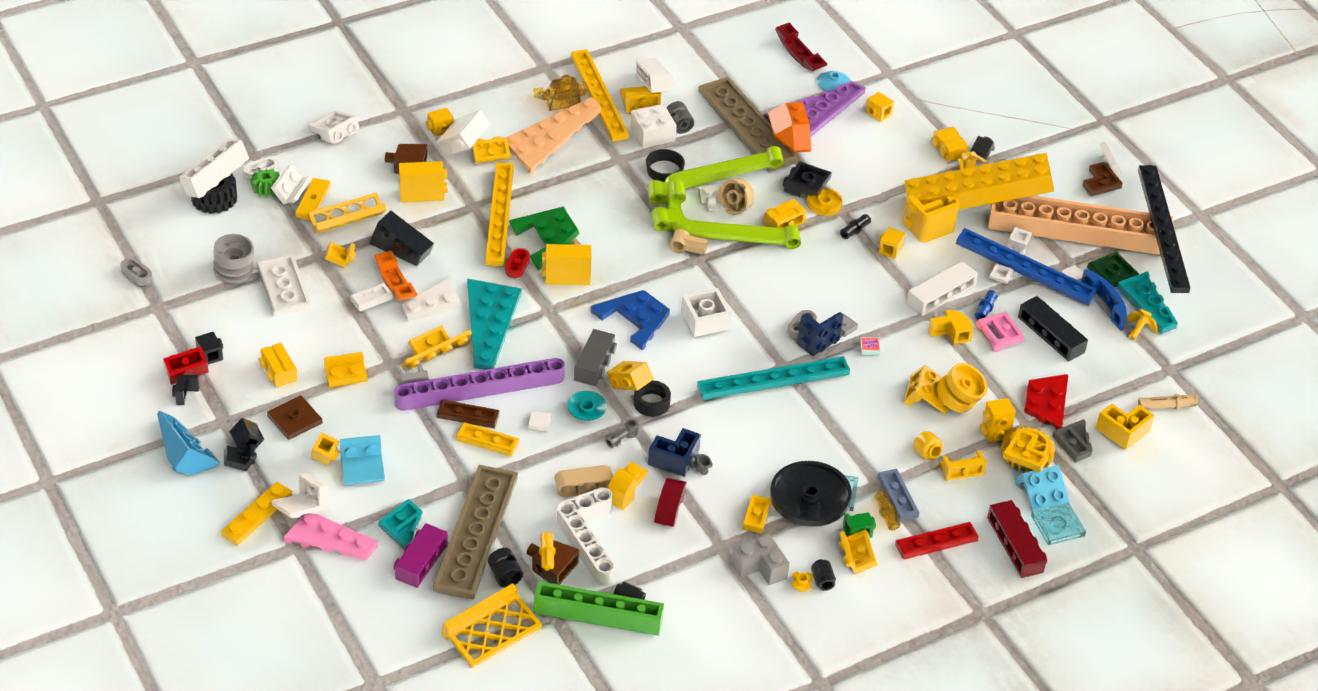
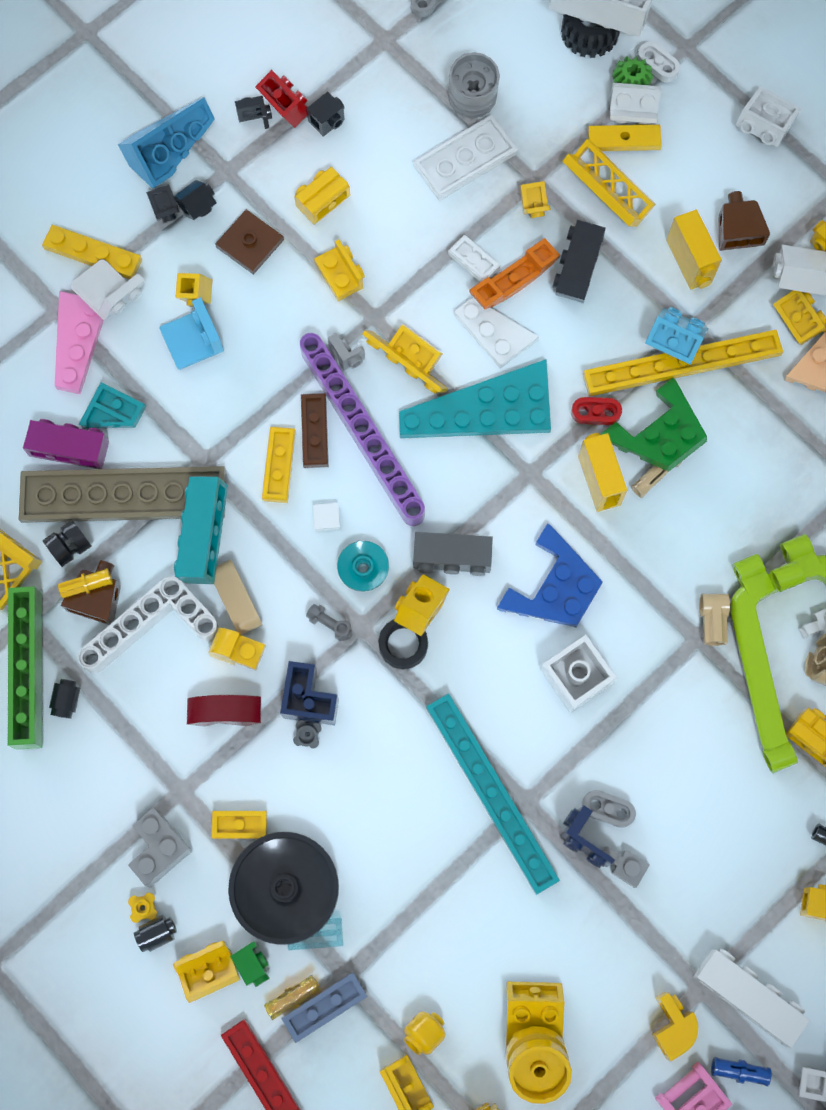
camera: 80 degrees right, 30 degrees up
(482, 204) = (677, 334): none -> medium azure bracket
(529, 477) = (201, 530): none -> teal brick
(870, 346) = (601, 913): tile -> none

